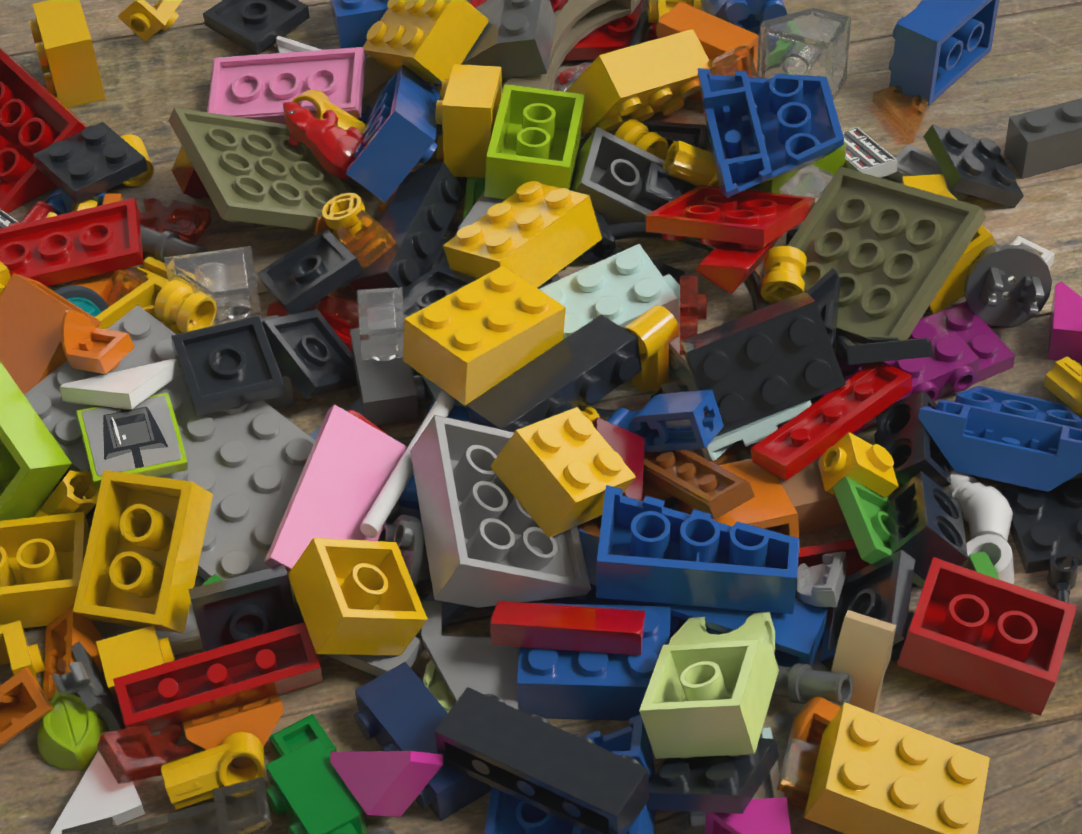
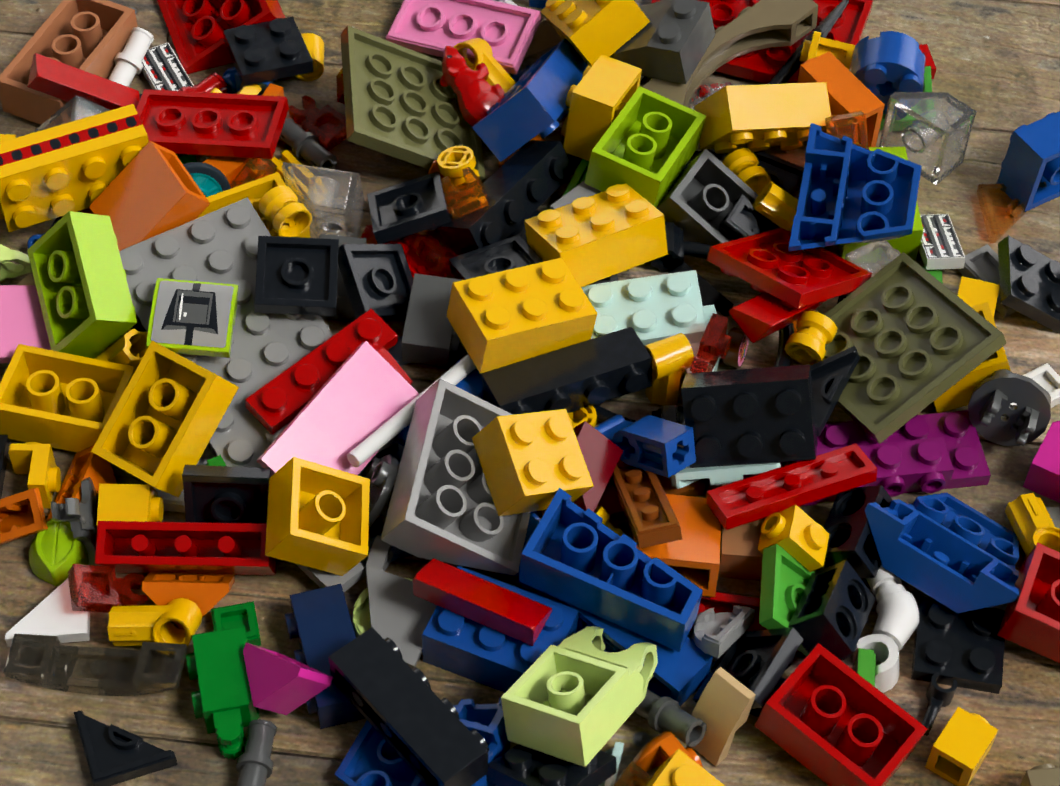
camera: 15 degrees right, 5 degrees up
(92, 347) = (189, 224): orange plate -> none
(121, 388) = (203, 269): white tile -> none
(276, 473) = (290, 391): none -> red plate
(381, 323) = (435, 277): clear brick -> none
(711, 321) = (738, 348): none -> reddish brown tile
(882, 349) = (862, 436): black tile -> none

